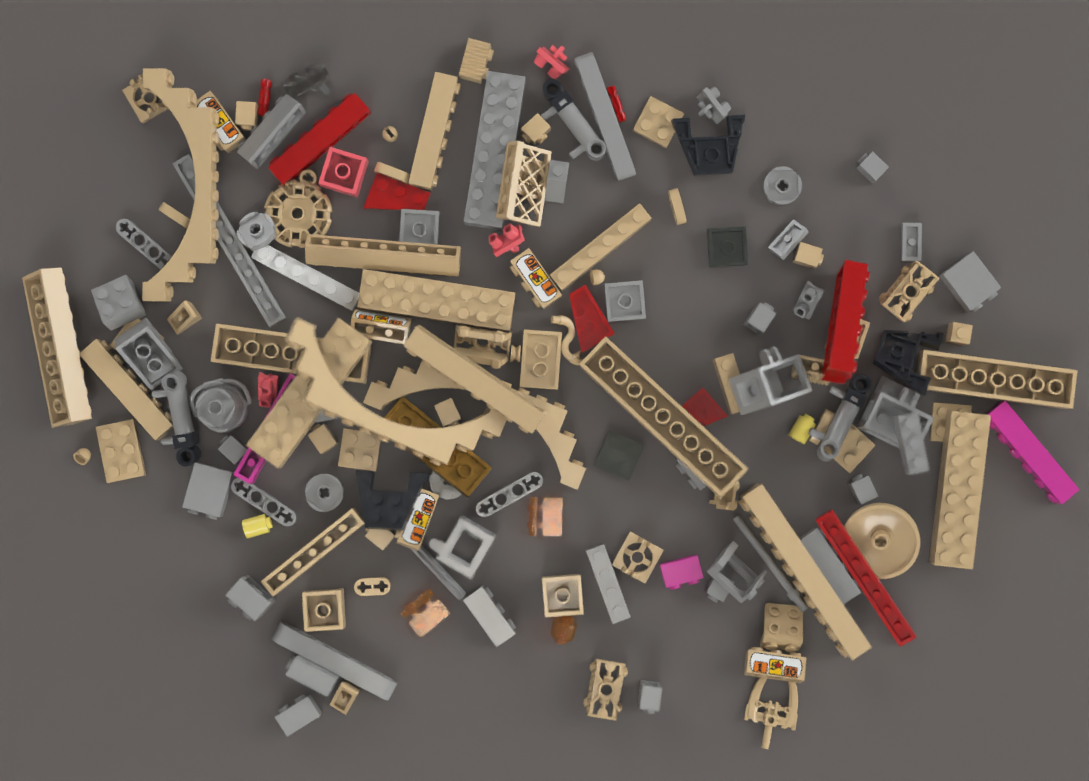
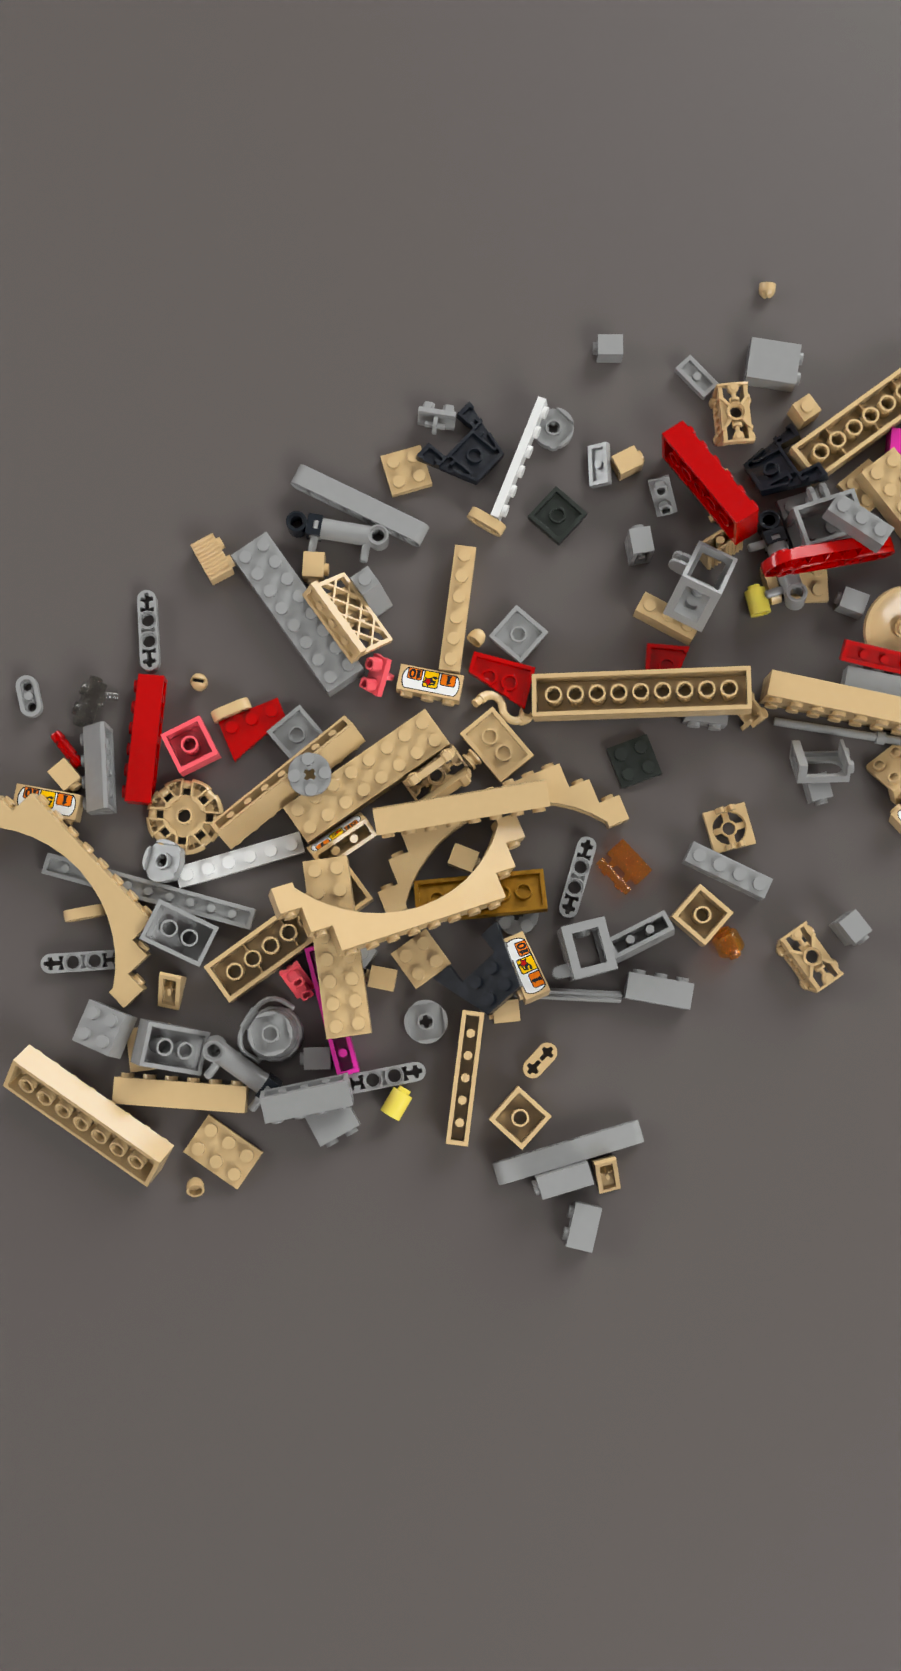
camera: 45 degrees left, 5 degrees down
(200, 469) = (306, 1098): none -> light grey brick
(221, 287) = (179, 933): none -> light grey slope
(250, 598) = (450, 1166): light grey brick -> none
(270, 39) = (29, 697): none -> light grey plate
(313, 175) = (168, 773): tan bush -> none
(386, 67) = (146, 631): none -> light grey beam
(407, 272) = (307, 762): none -> light grey plate
(427, 618) = (610, 1040): clear orange plate -> none
(433, 131) = (233, 646): tan brick -> none
(510, 571) = (642, 936): none -> light grey brick
(558, 67) = (284, 502): coral hips -> none
(616, 104) = (359, 486): red axle -> none
(681, 571) = (775, 805): dark pink brick -> none
(746, 183) = (523, 451): none -> white plate
(867, 441) = (822, 556): none -> red beam
(1017, 228) = (767, 289): none -> tan hinge

